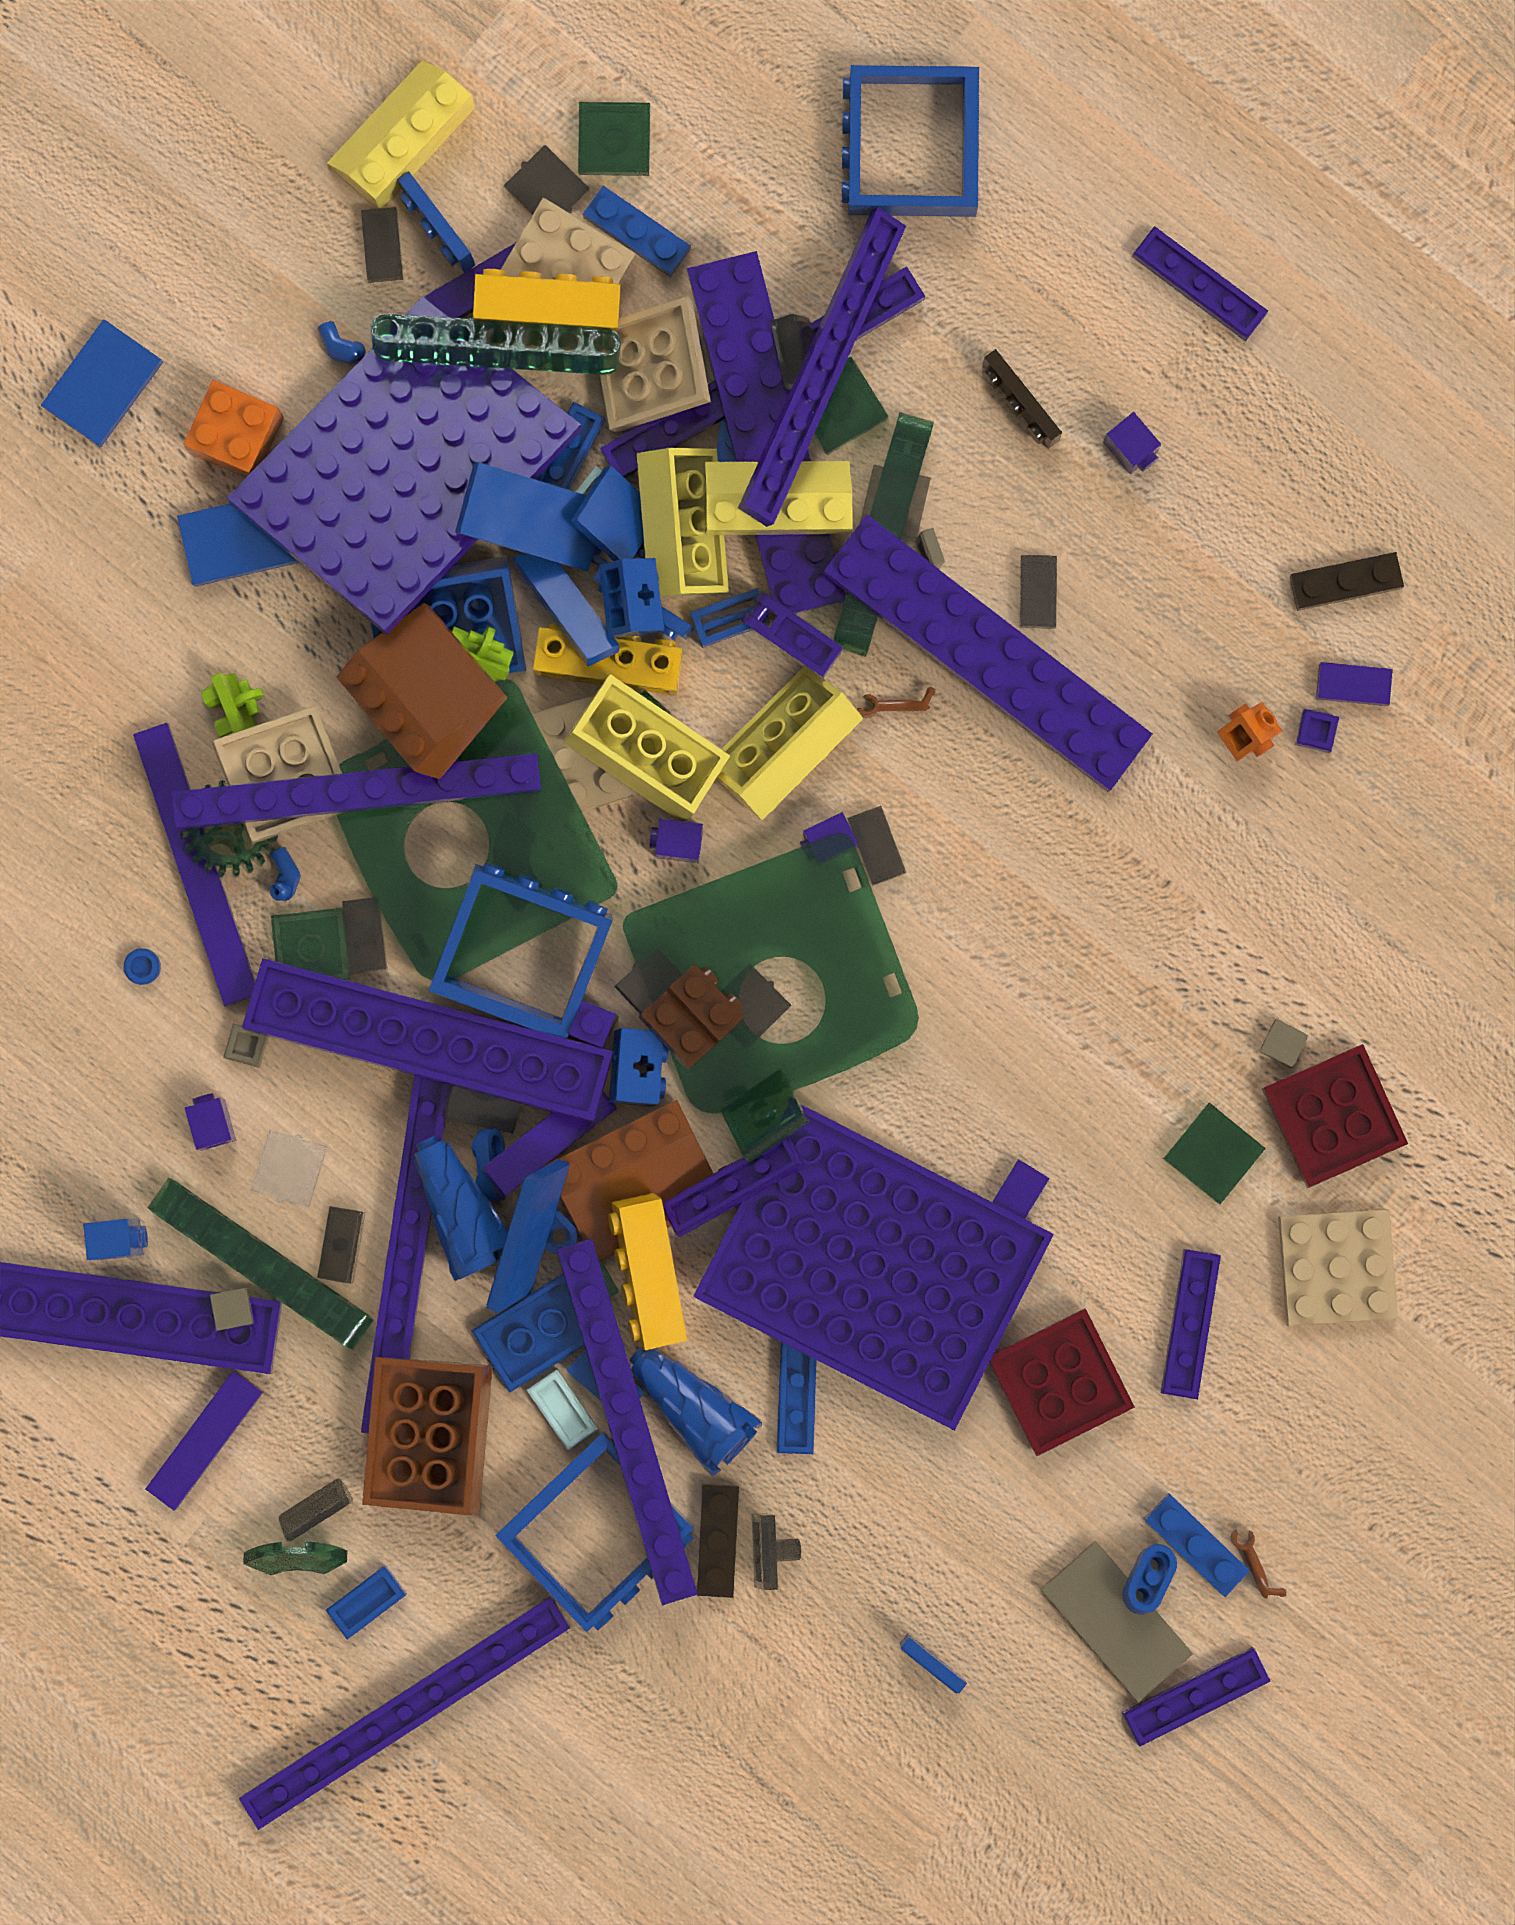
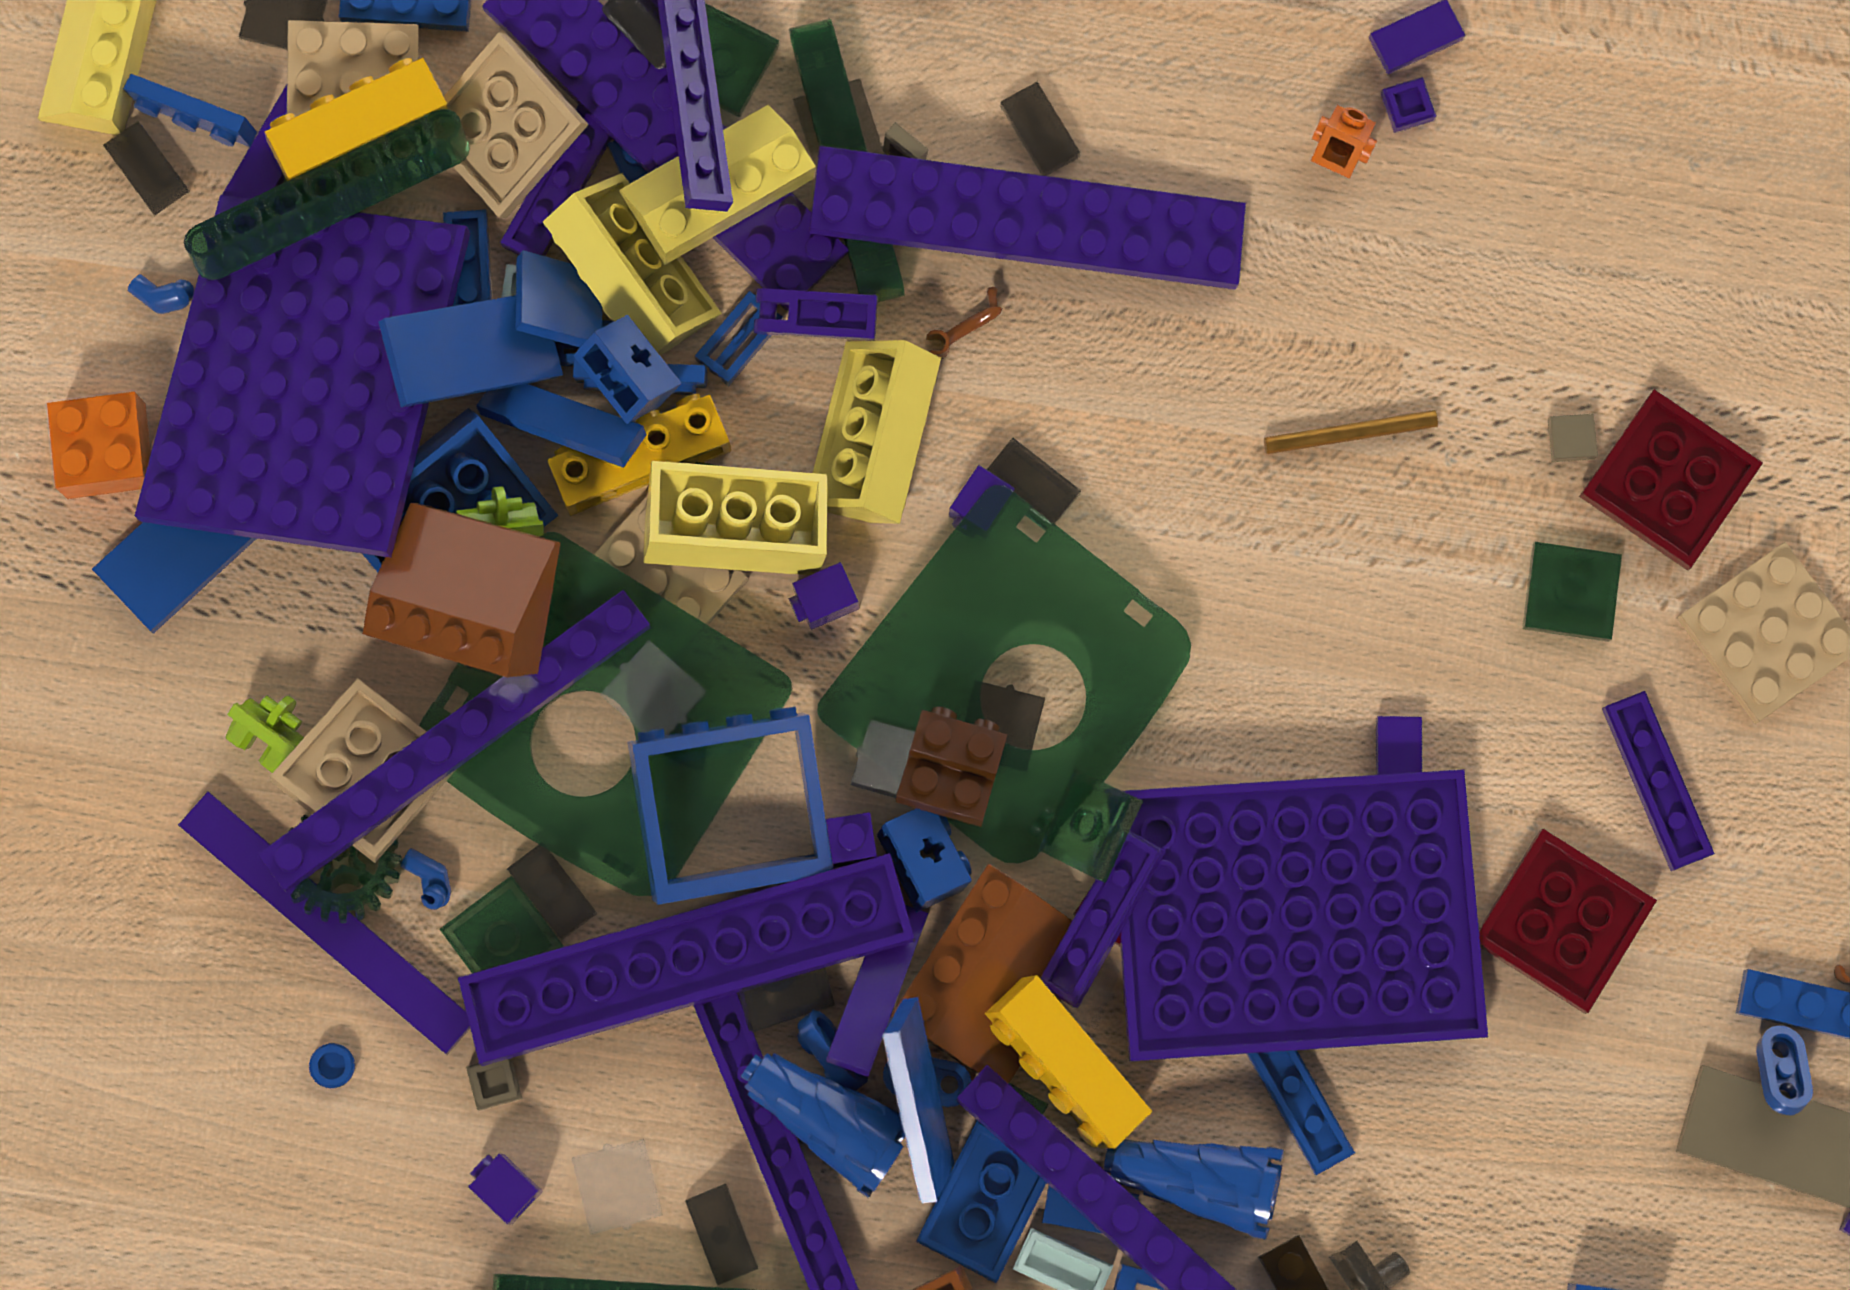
camera: 35 degrees left, 5 degrees down
(516, 838) = (653, 691): none -> clear piece
(1126, 944) = (1350, 432): none -> pearl gold bar

